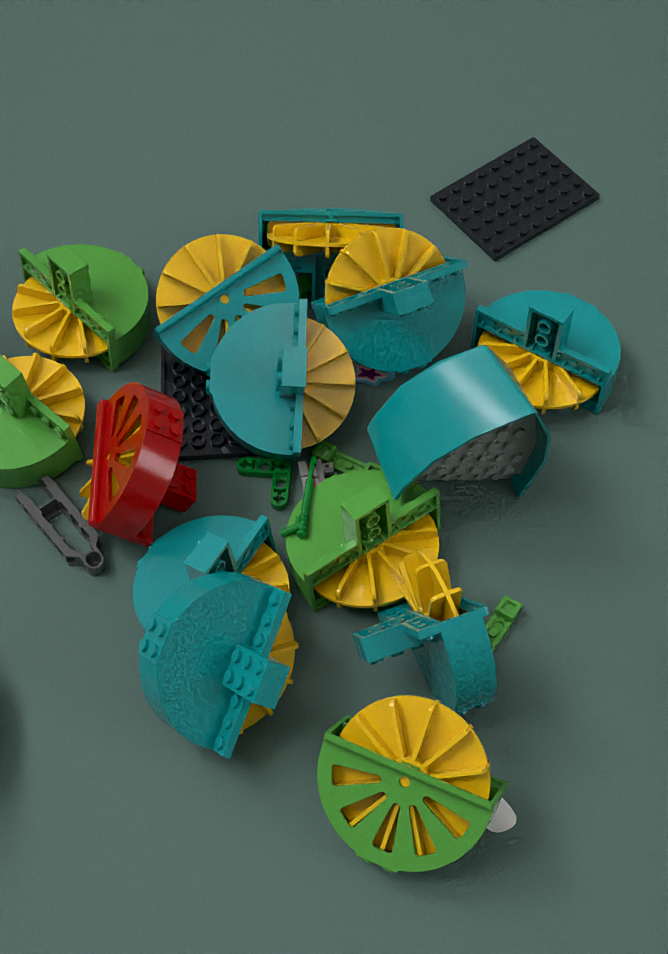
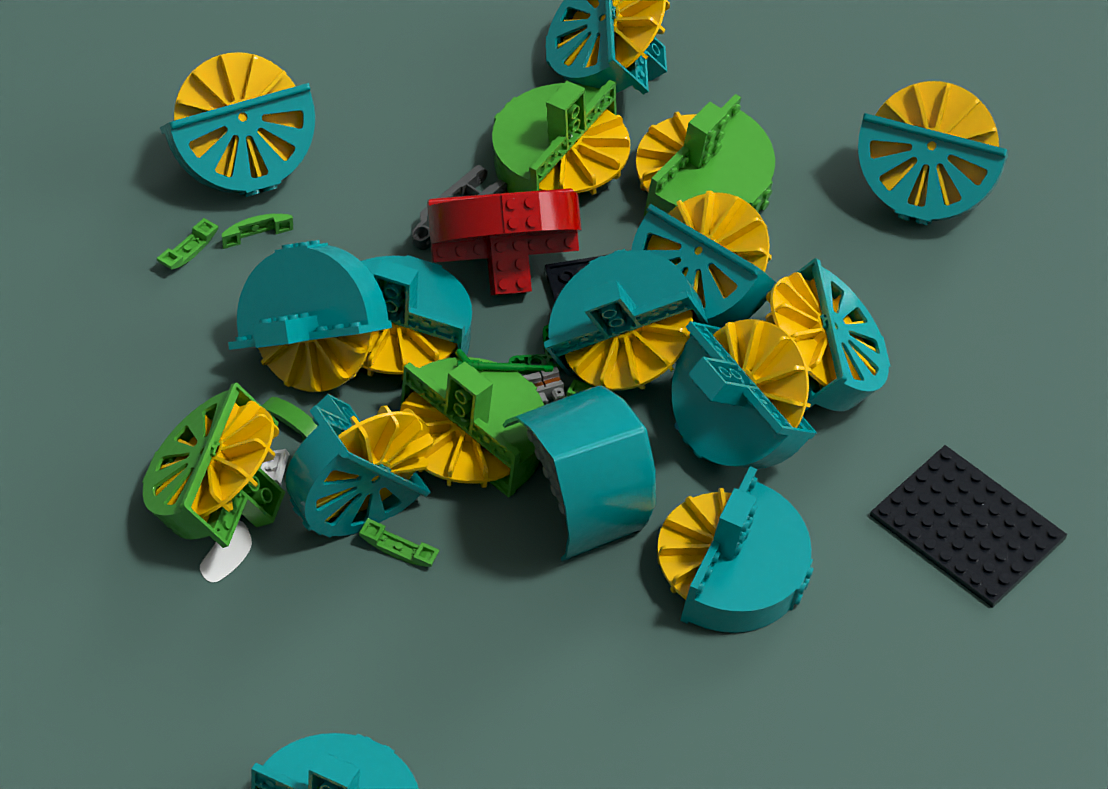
camera: 75 degrees right, 5 degrees down
(35, 702) = (255, 225): none -> bright green slope
(43, 799) = (190, 247): none -> bright green slope
(132, 128) = (931, 152): none -> piece
(312, 714) = (290, 415): none -> bright green slope

